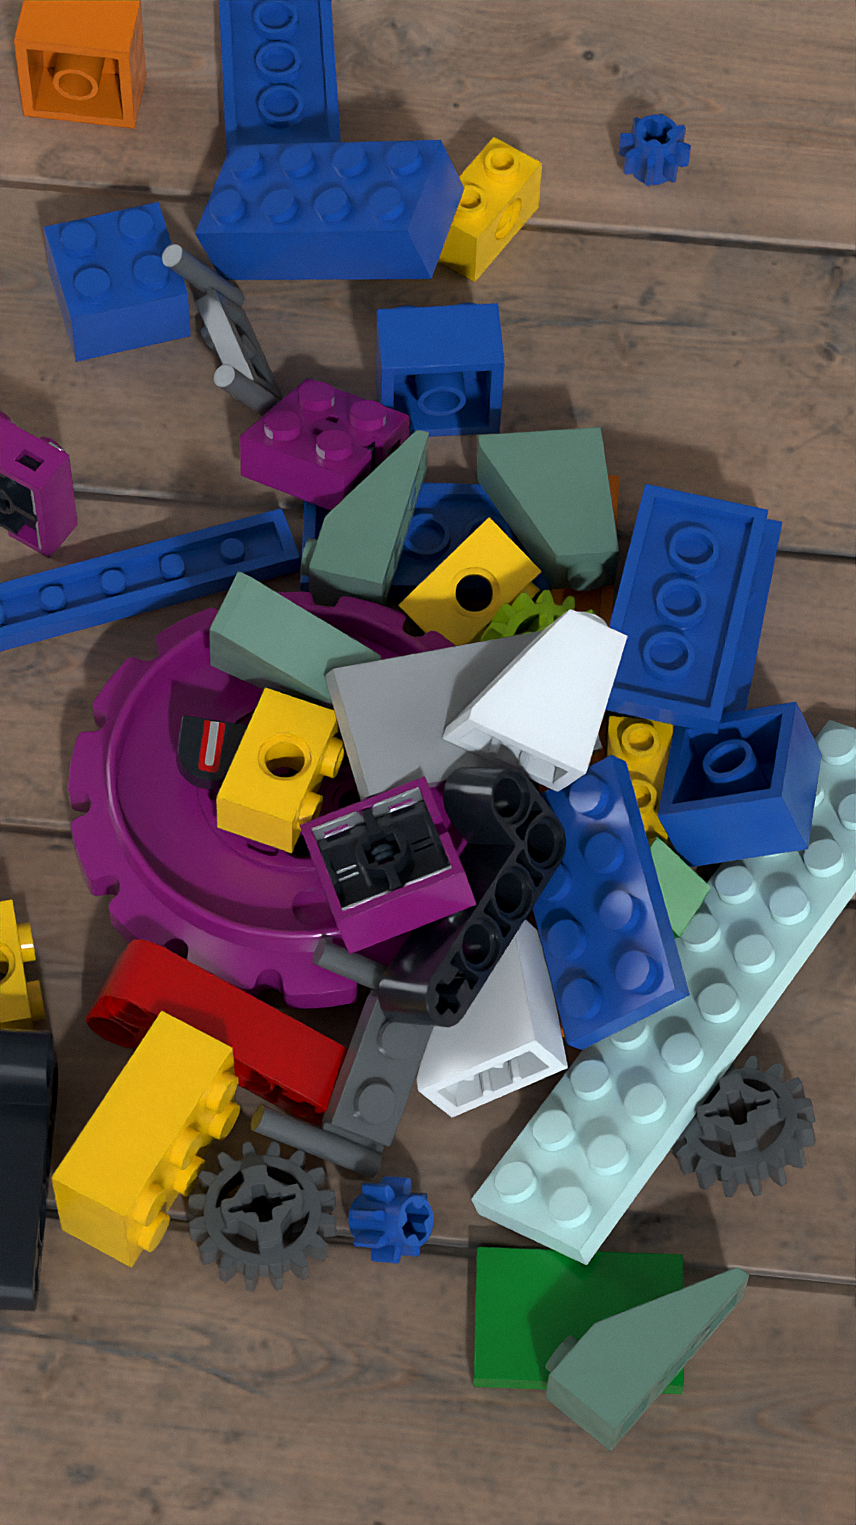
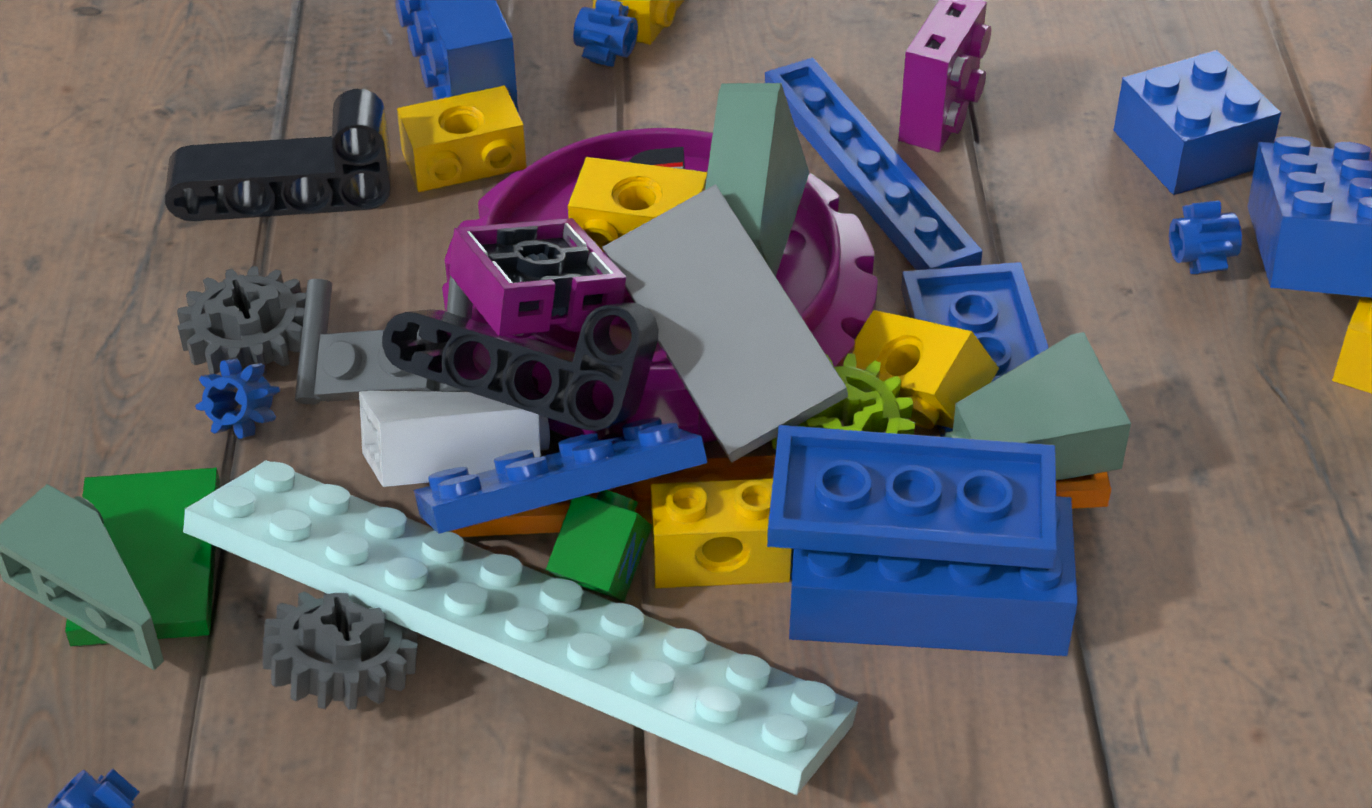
camera: 85 degrees right, 15 degrees down
(147, 1140) = (302, 220): yellow brick -> none
(228, 334) = (1146, 207): dark grey plate -> none
(271, 1050) = (412, 247): red beam -> none
(296, 320) = (1205, 237): none -> blue gear
(320, 443) = (1057, 261): magenta piece -> none
(368, 530) = (972, 290): sand green slope -> none
(442, 367) = (1174, 323): blue brick -> none
(546, 702) = (741, 362): white slope -> none
(741, 788) = (719, 589): blue brick -> none

